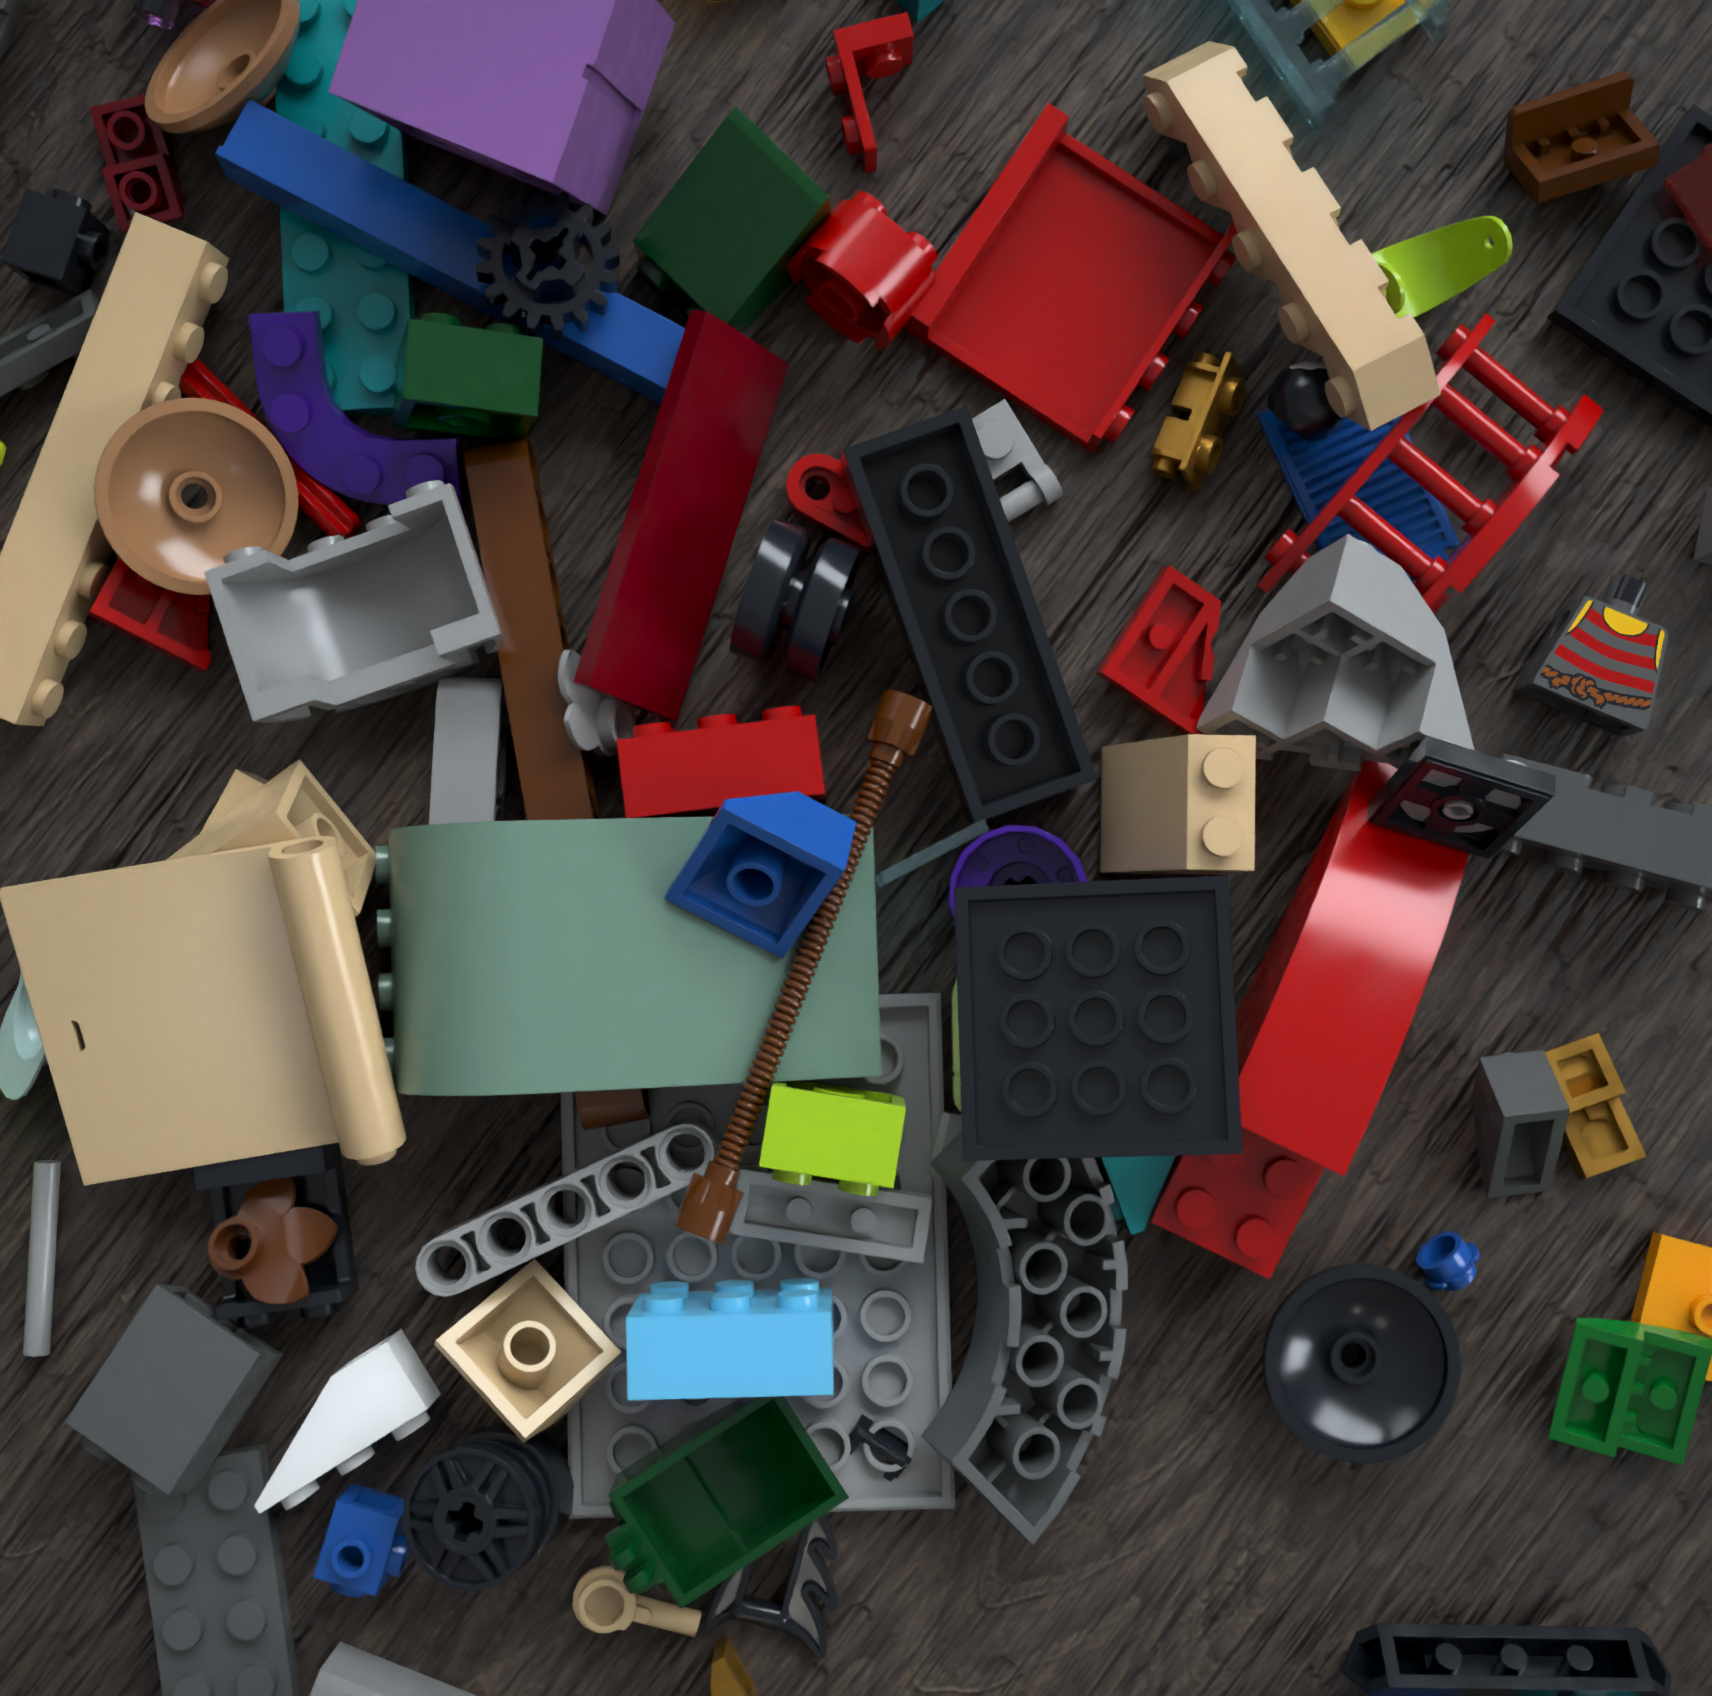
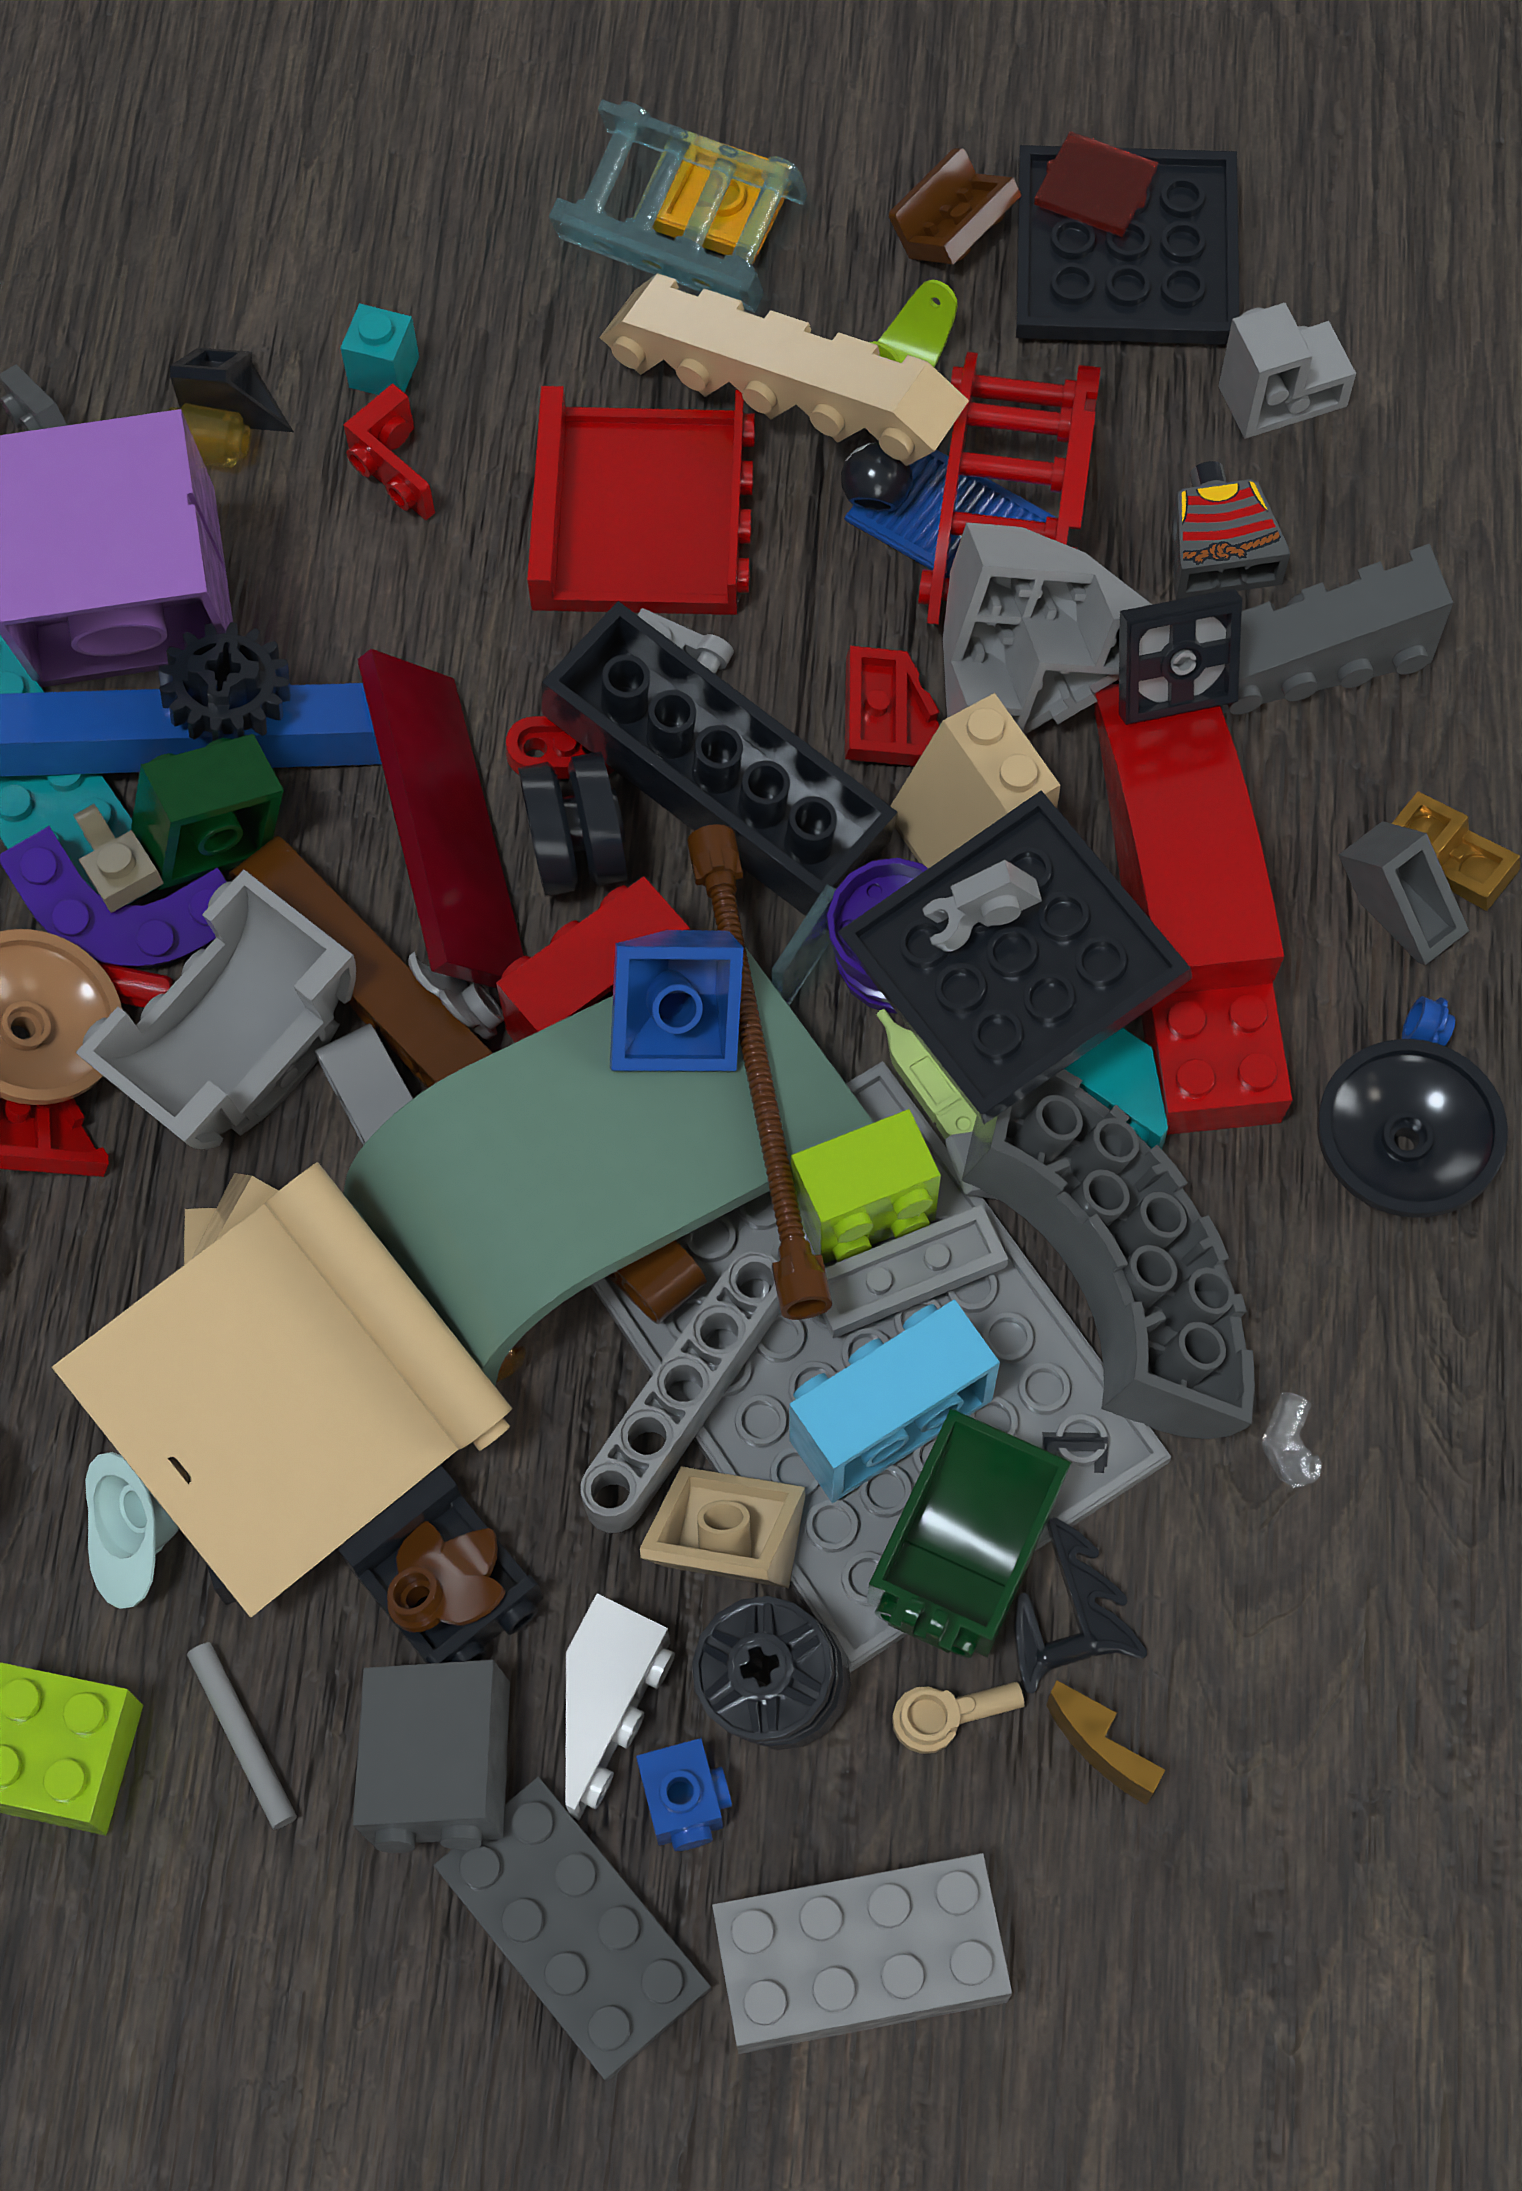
camera: 30 degrees left, 20 degrees down
(361, 387) = (116, 865): none -> dark tan plate
(731, 225) = (350, 589): dark green slope -> none
(864, 271) = (474, 572): red brick -> none
(1058, 1559) = (1284, 1446): none -> clear arm
(1103, 972) = (987, 897): none -> light grey plate
(1211, 396) = (812, 560): pearl gold hinge -> none

